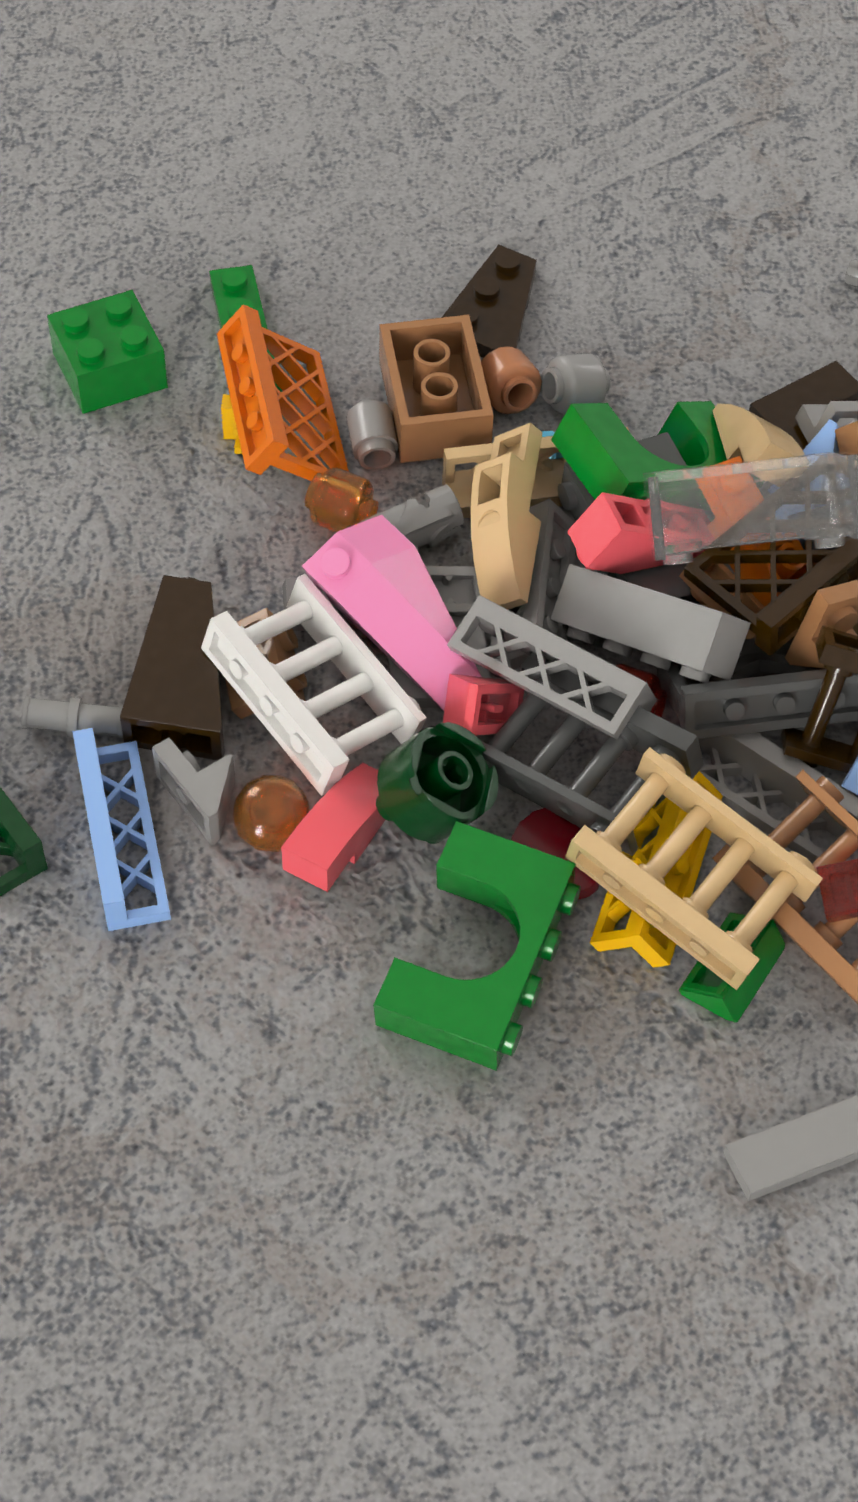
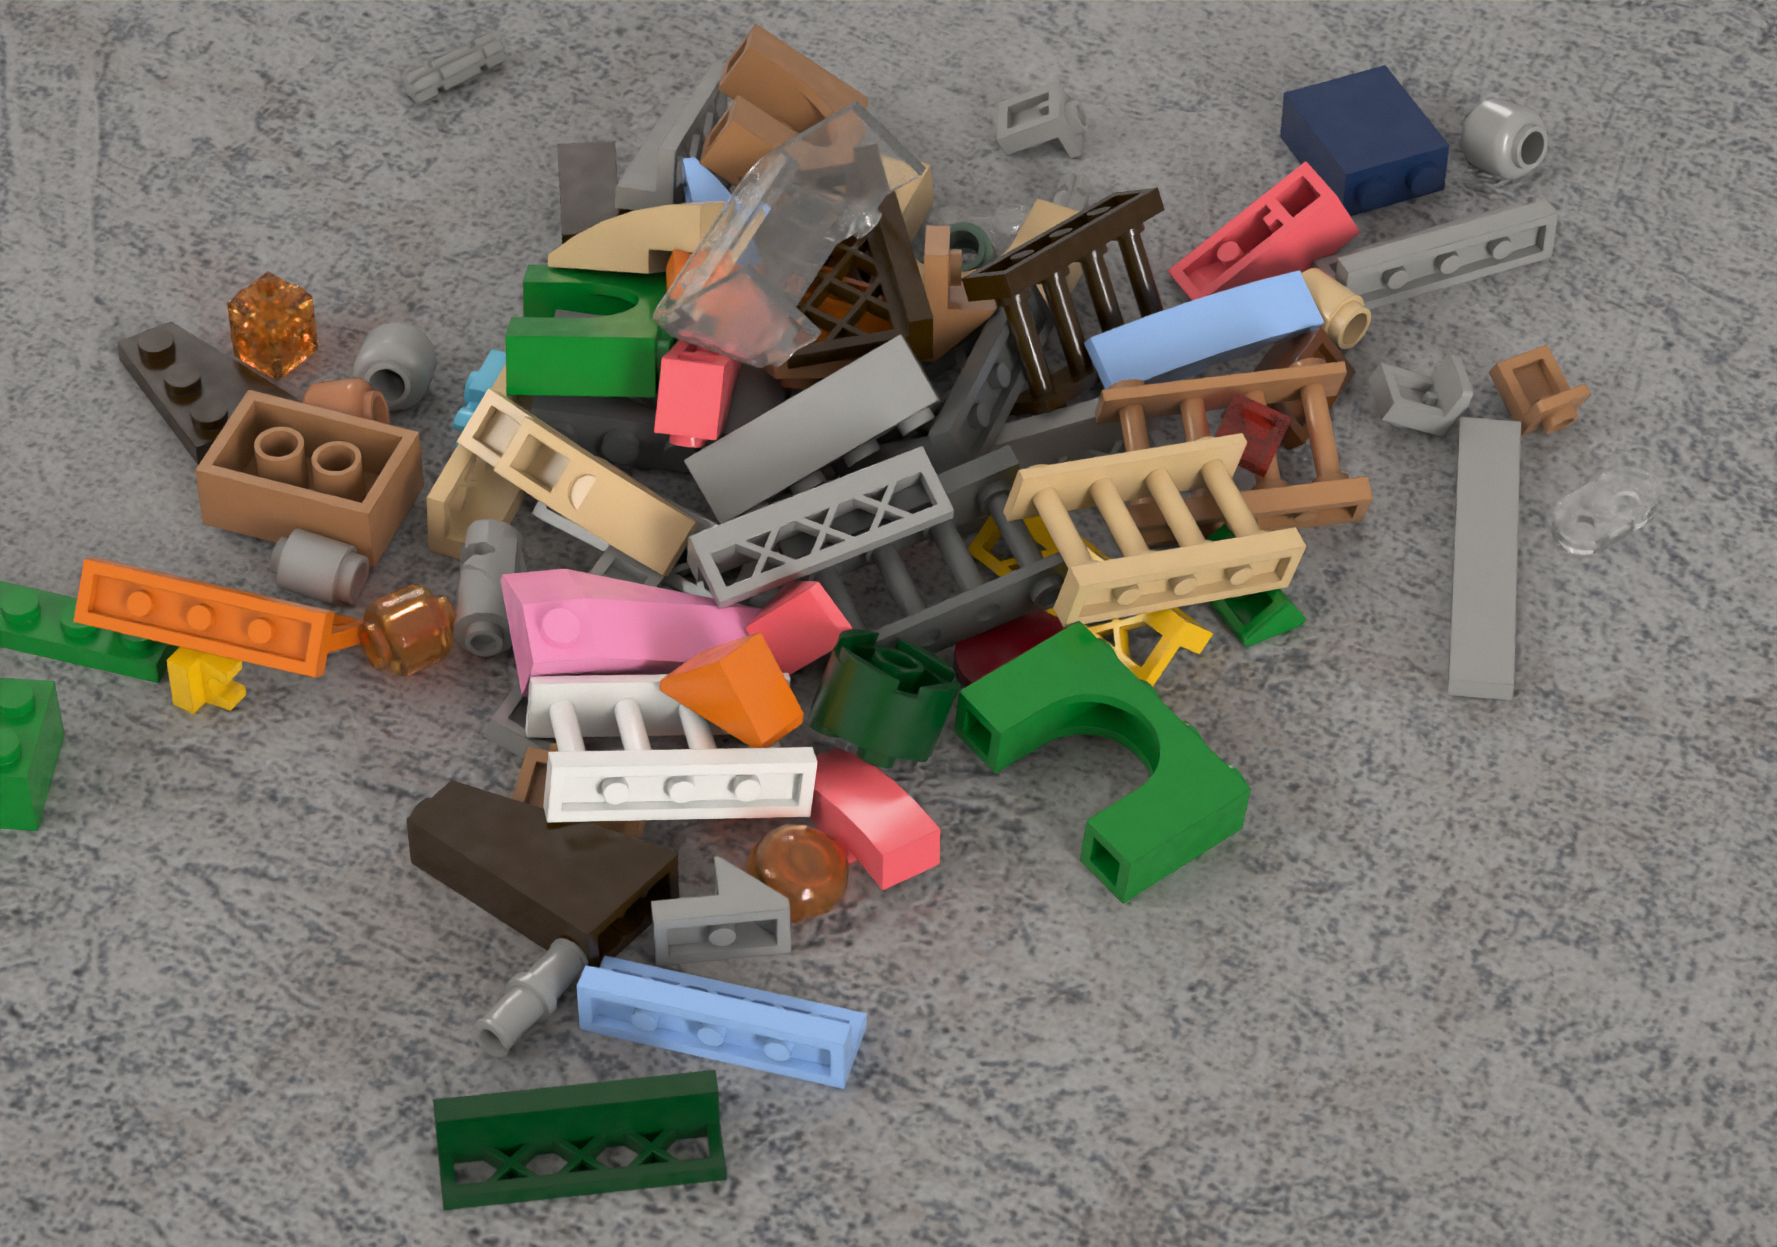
camera: 60 degrees left, 10 degrees down
(365, 695) = (738, 691): none -> orange slope
(563, 306) = (272, 325): none -> clear orange brick

